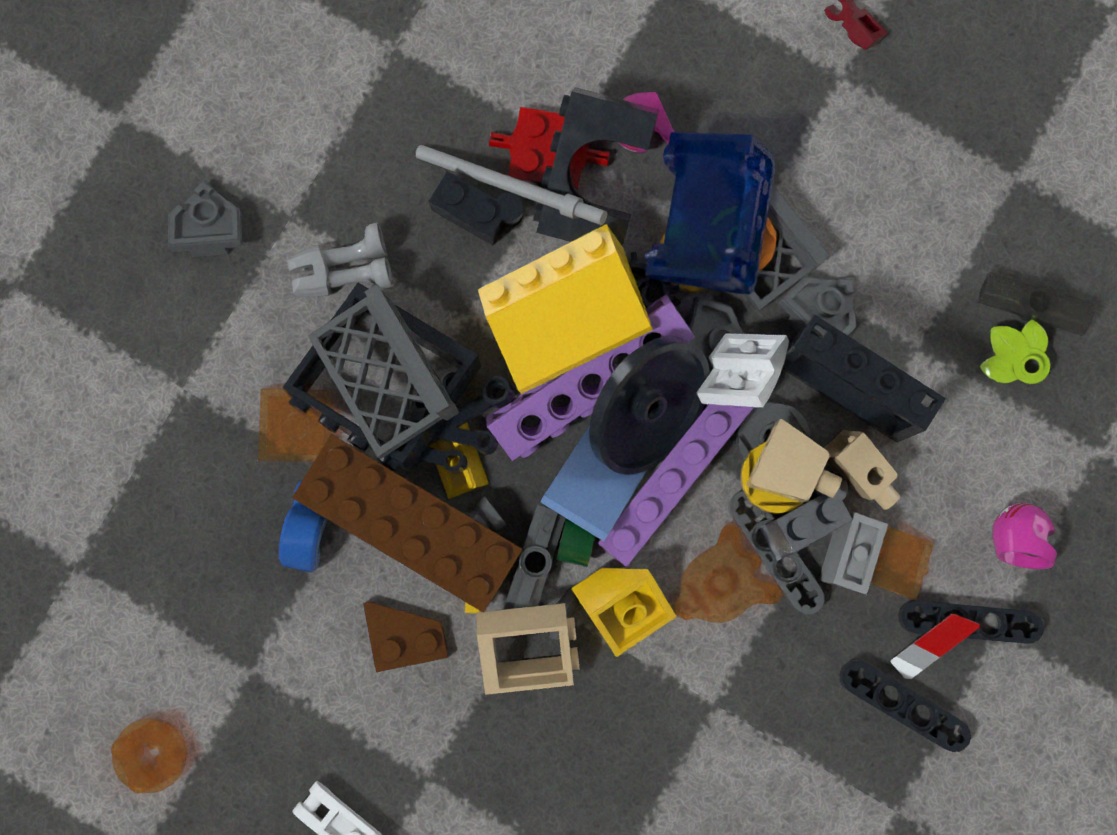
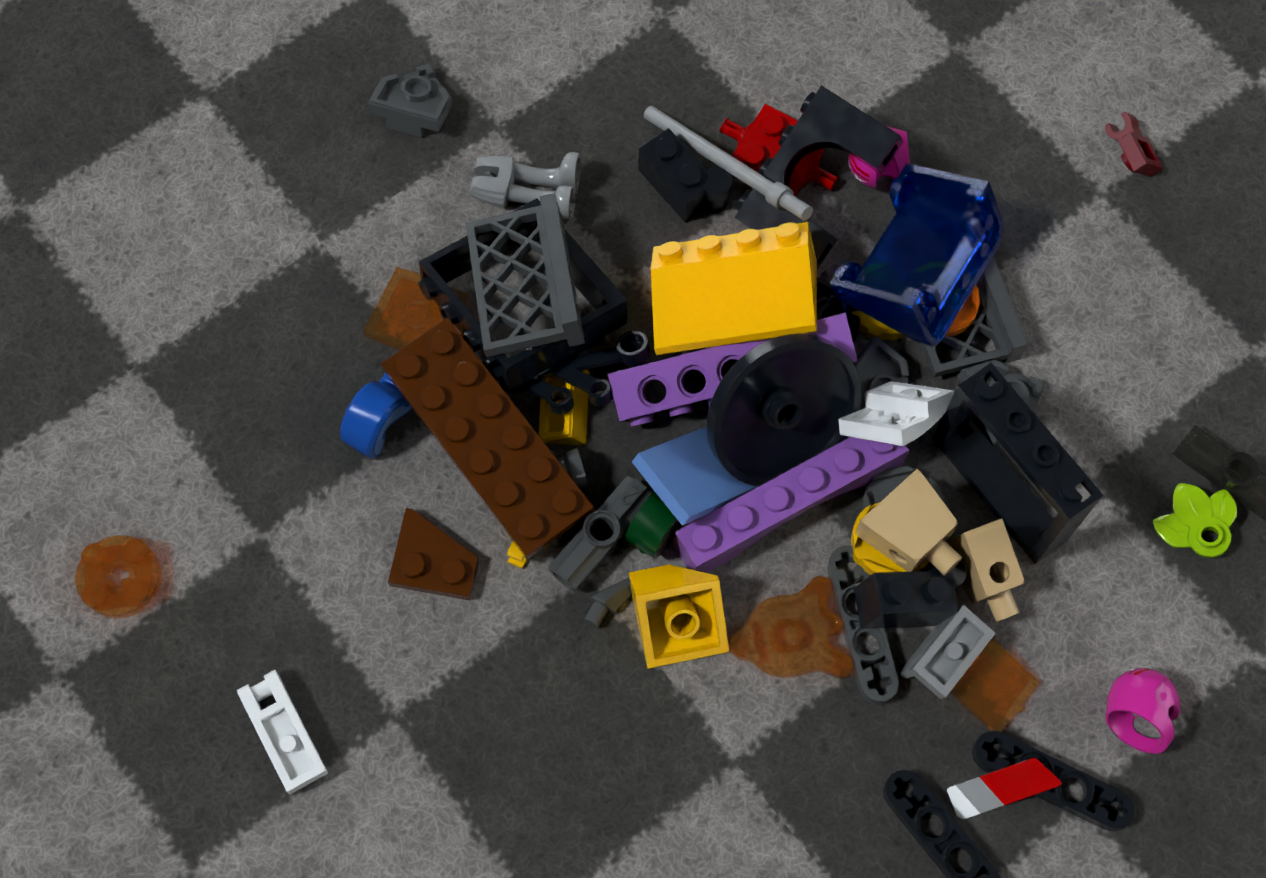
camera: 20 degrees right, 15 degrees down
(529, 673) = (547, 645): tan window -> none

